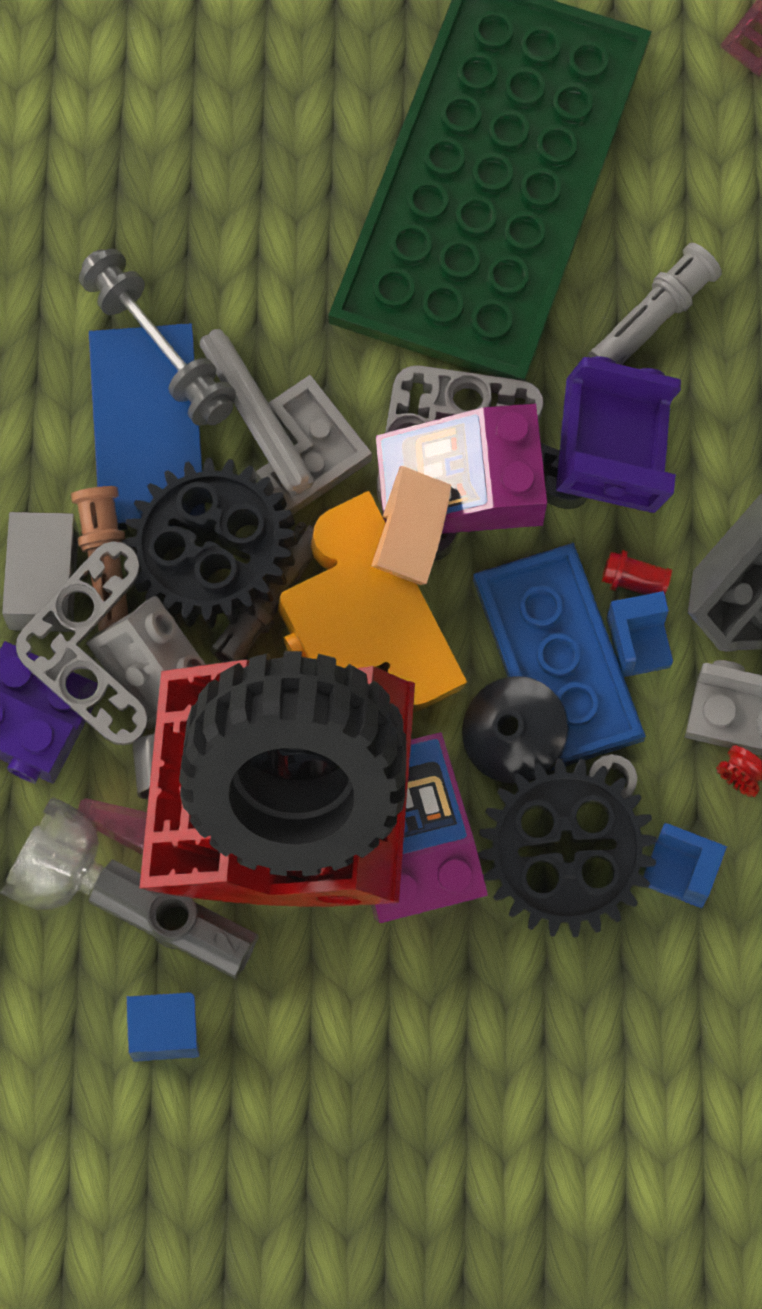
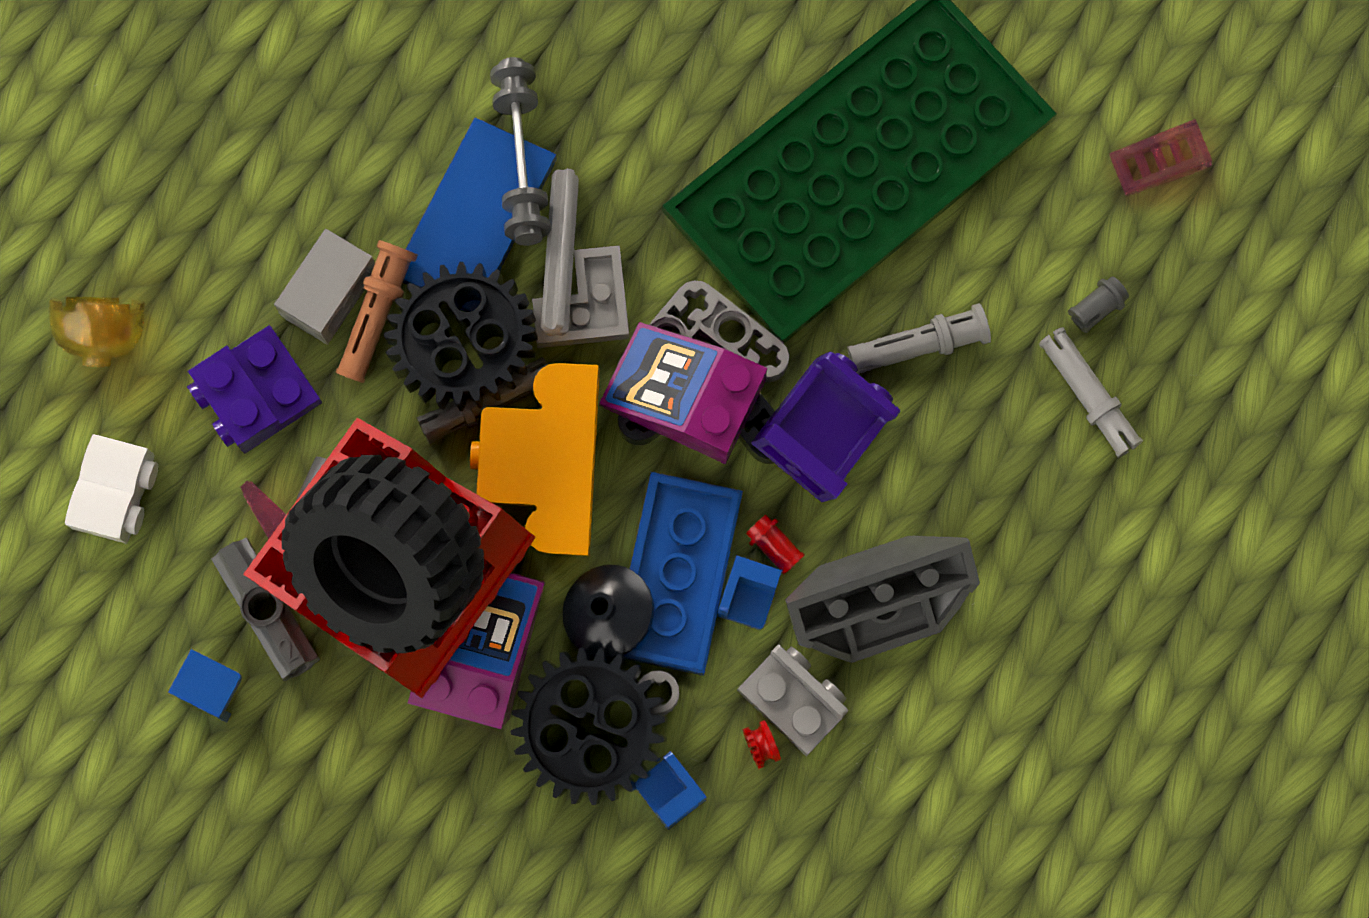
camera: 30 degrees right, 5 degrees up
(55, 859) = (202, 514): clear cylinder -> none
(68, 654) = (302, 364): light grey beam -> none
(141, 648) = (363, 391): light grey bracket -> none
(413, 526) = (613, 411): light nougat slope -> none

